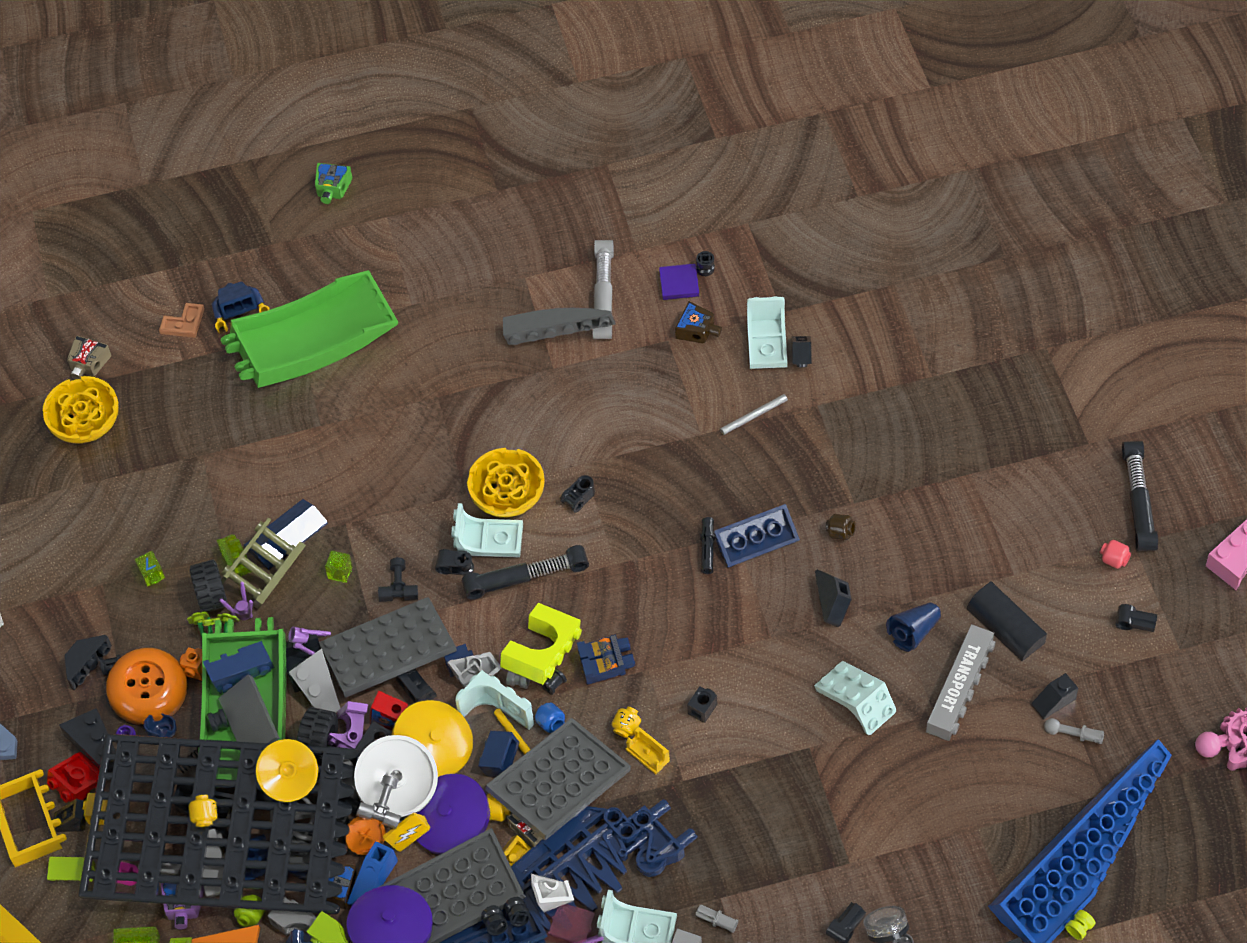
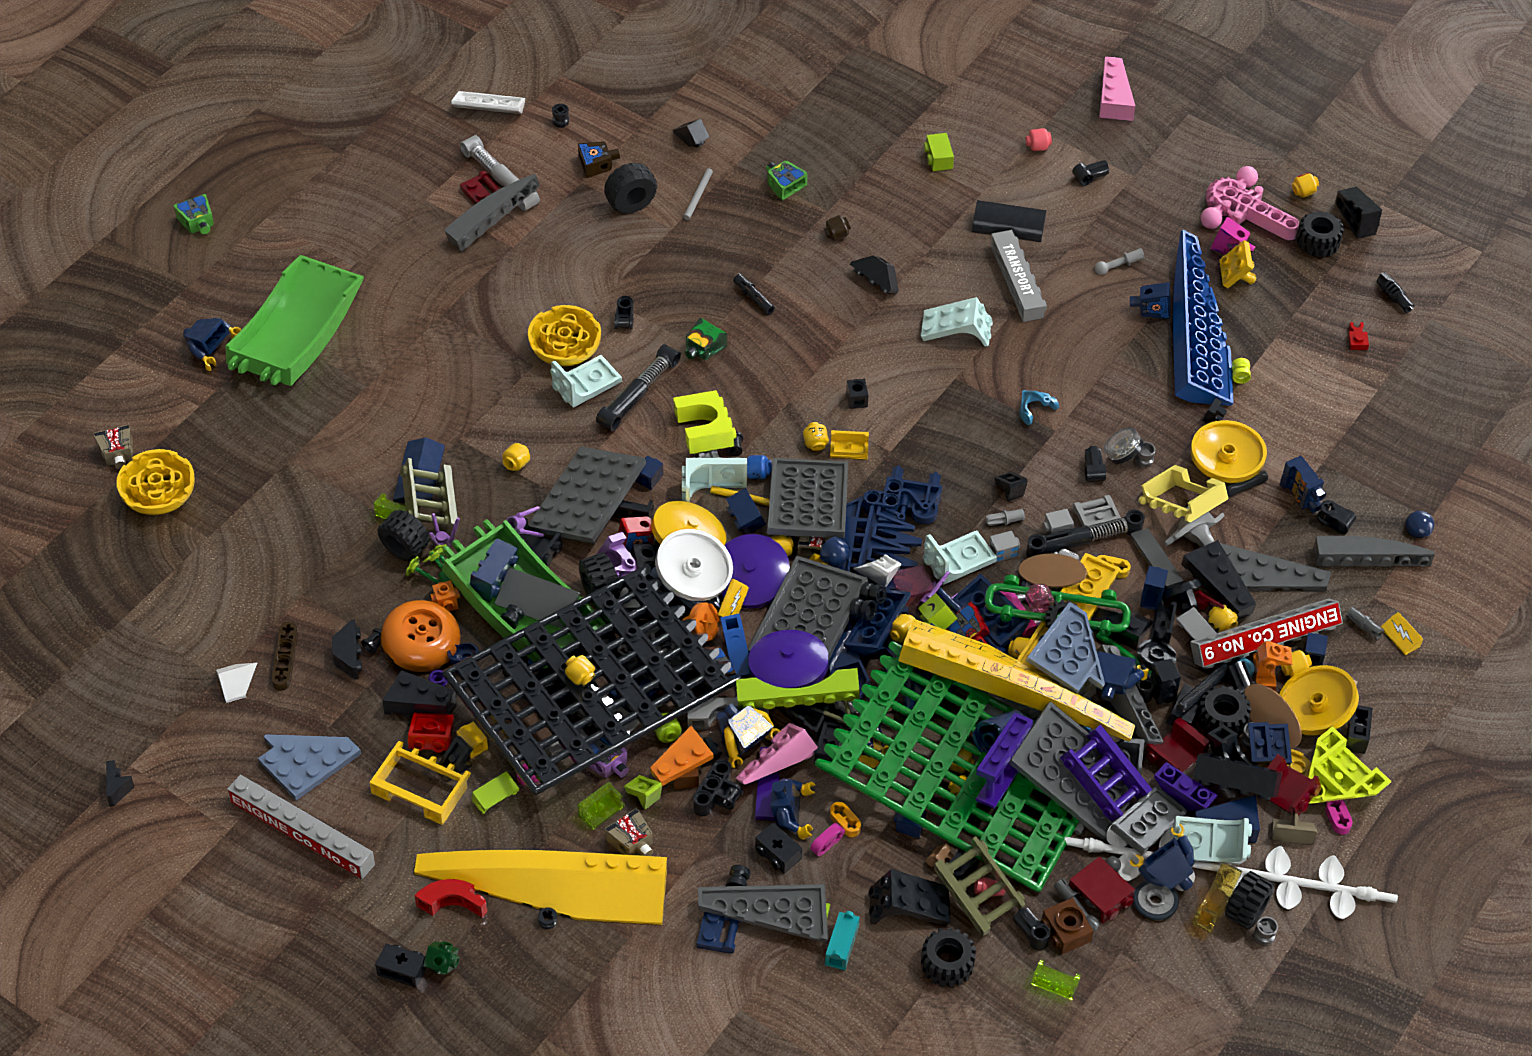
camera: 45 degrees left, 5 degrees down
(35, 628) = (281, 655): none -> dark brown beam
(149, 568) = (335, 558): clear neon green brick -> none
(186, 325) = (175, 378): nougat tile -> none
(287, 770) = (617, 602): yellow hat -> none
(315, 682) = (558, 547): light grey wing -> none
(338, 566) = (490, 466): clear neon green brick -> none
(366, 571) = (516, 457): none -> yellow head
(380, 810) = (706, 591): flat silver bar -> none
(398, 587) = (550, 454): black bar -> none
(452, 562) = (576, 413): black piece -> none
(469, 666) = (669, 469): light grey slope -> none
(526, 848) = (834, 552): none -> dark blue hair
(571, 293) = (474, 189): none -> dark red plate
(604, 659) = (756, 407): dark blue hips -> none
(620, 563) = (704, 340): none -> clear green torso
(659, 214) = (488, 102): none -> white slope
(679, 281) = (551, 138): dark purple tile -> none
(689, 373) = (630, 188): none -> black tyre
(750, 889) = (1013, 485): none -> black slope
(756, 535) = (783, 268): dark blue slope -> none
(766, 332) = (653, 135): light aqua bracket -> none
(841, 447) = (785, 178): none -> torso
(850, 812) = (1029, 396): none -> dark azure helmet
(912, 625) = (952, 260): dark blue cone -> none
(1008, 507) = (939, 152): none -> lime brick
(1055, 696) = (1087, 246): black slope -> none
(1062, 795) = (1153, 301): none -> dark blue torso
(1145, 535) = (1044, 117): black piece -> none
(1179, 812) = (1237, 265): none -> yellow plate
(1203, 782) = (1229, 236): none -> dark pink torso

